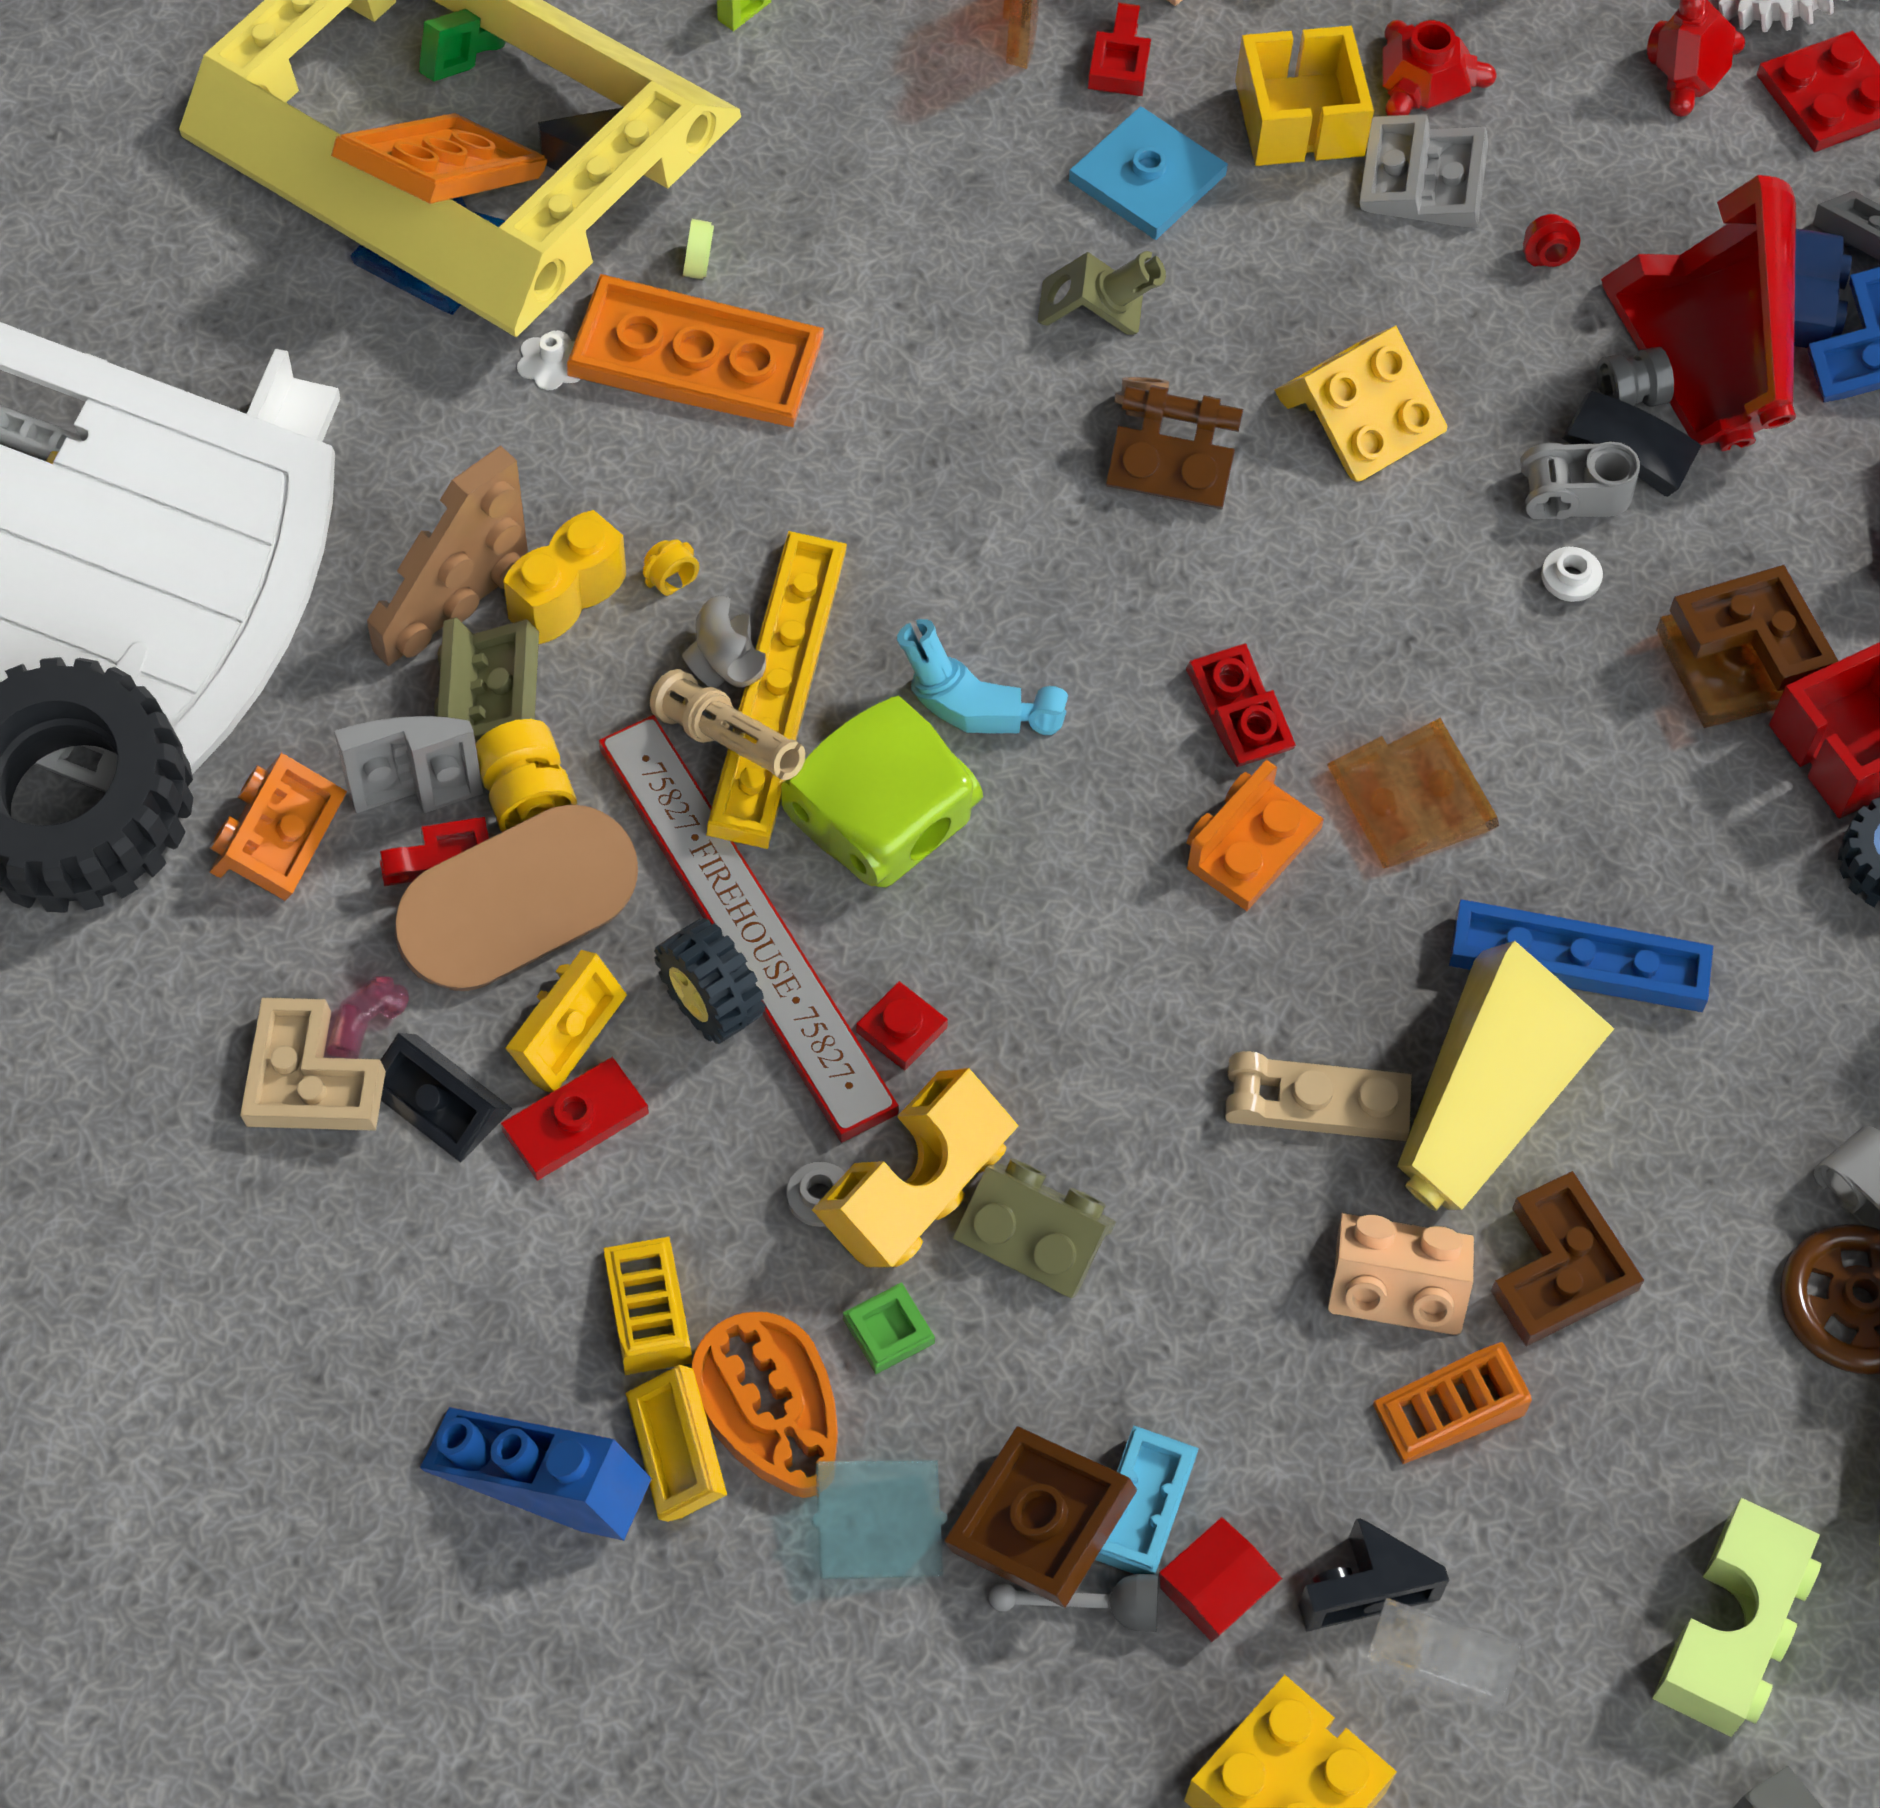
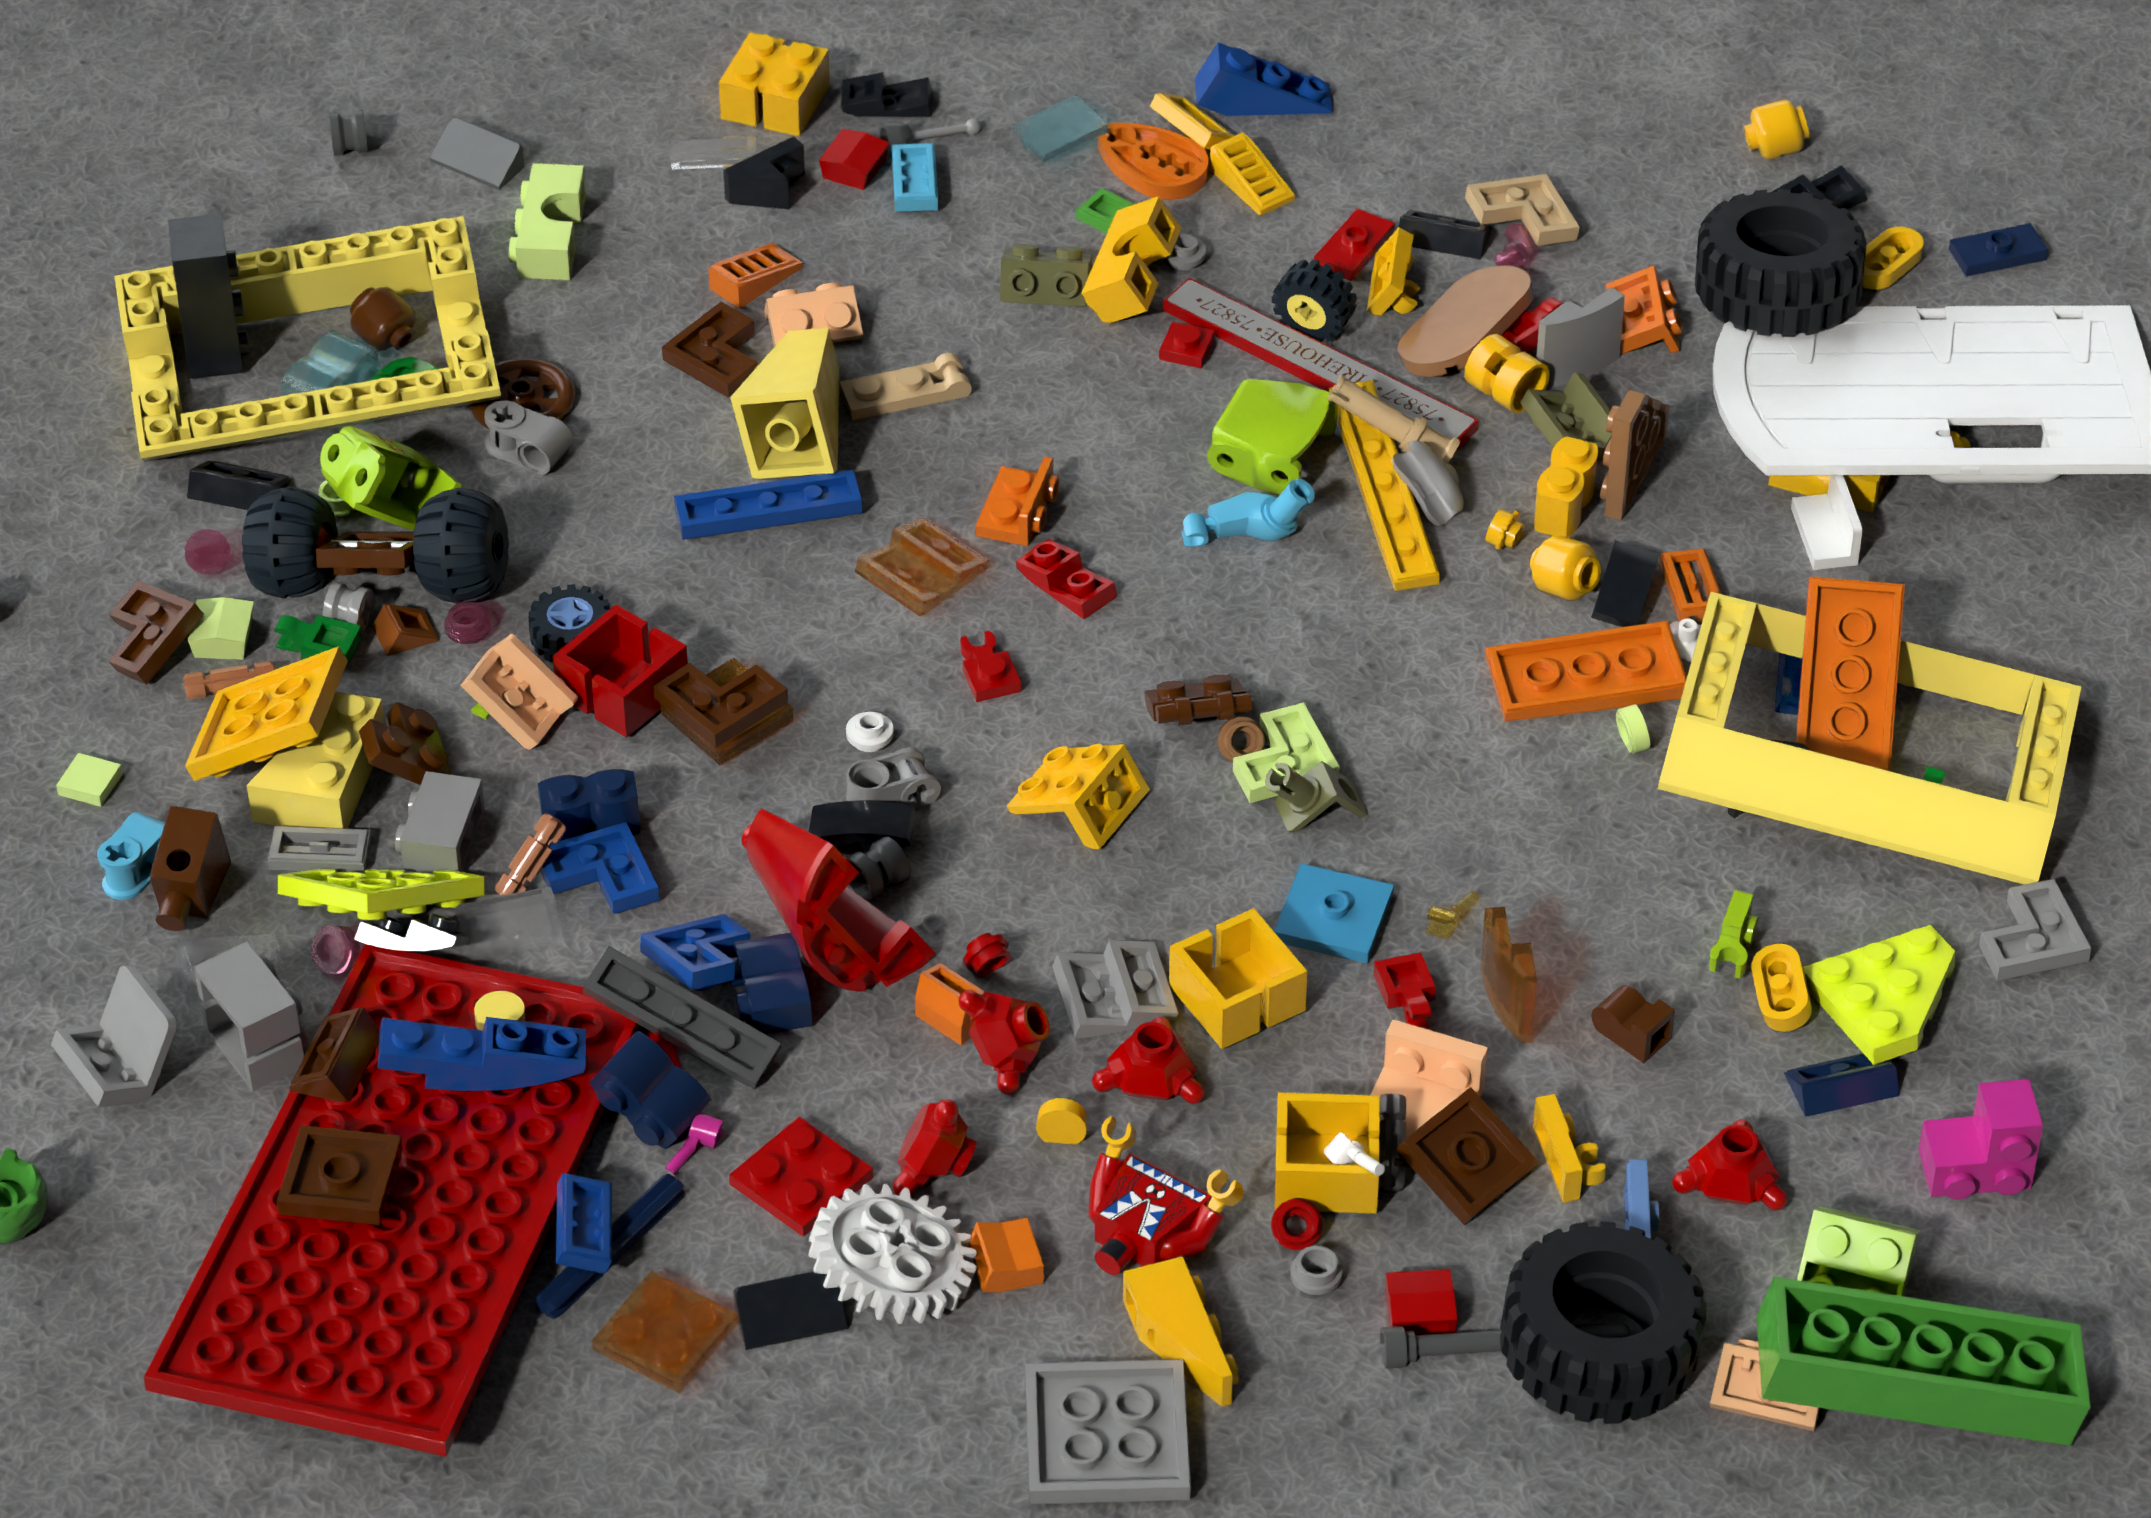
camera: 160 degrees right, 15 degrees down
(524, 413) = (1697, 606): none -> orange tile
(573, 434) = (1625, 585): none -> black slope
(638, 474) = (1565, 568): none -> yellow head
(1035, 118) = (1444, 921): none -> clear yellow hand
(1041, 1516) = (968, 142): reddish brown plate -> none
(1096, 348) = (1292, 741): none -> yellowish green plate
(1111, 1716) = (875, 98): none -> black slope
(1394, 608) = (988, 672): none -> red plate
(1549, 37) = (1062, 1121): none -> yellow tile
(1568, 130) = (1005, 1033): none -> red rock
(1617, 191) = (938, 1002): none -> orange piece

